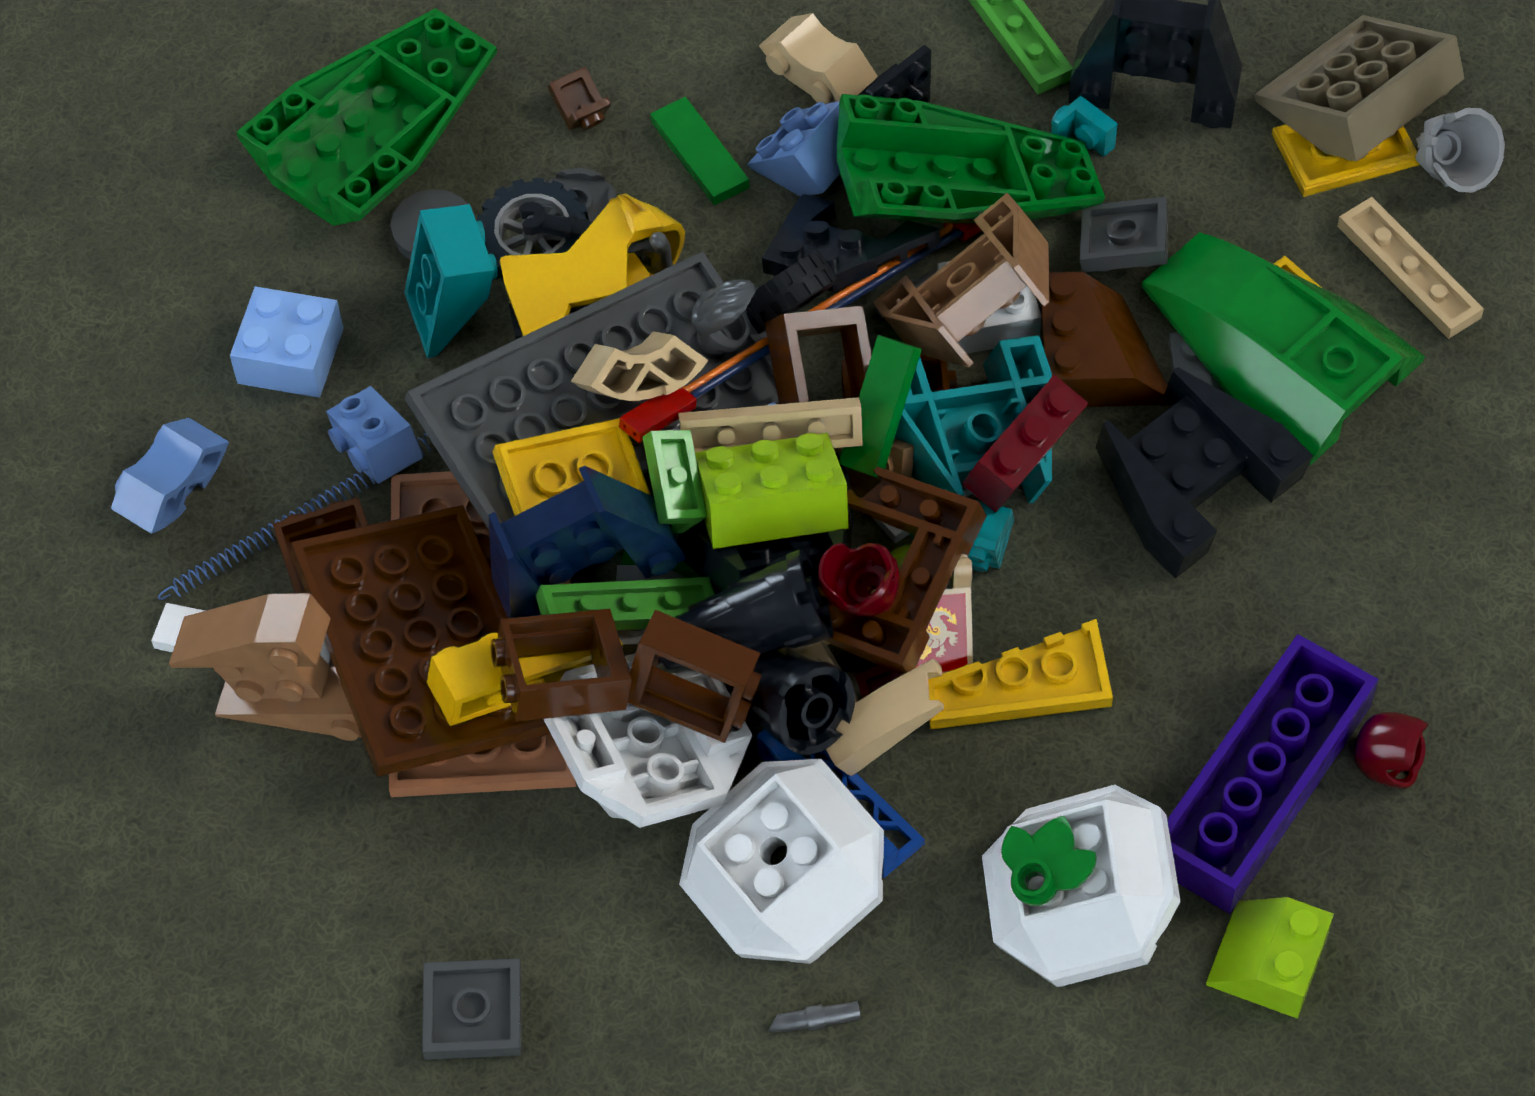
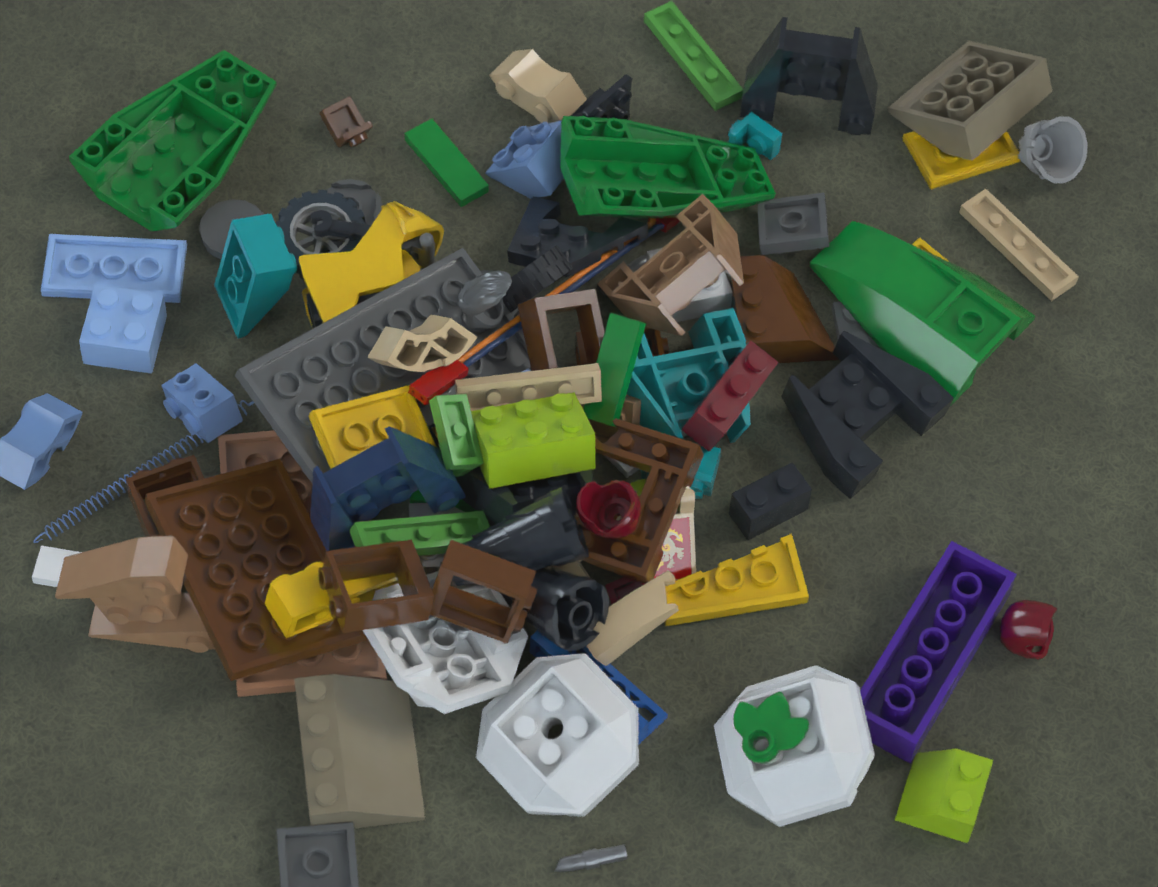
camera: 10 degrees left, 0 degrees up
(286, 261) = (141, 264): none -> light blue tile
(532, 871) = (358, 751): none -> dark tan slope
(1071, 577) = (770, 501): none -> black brick

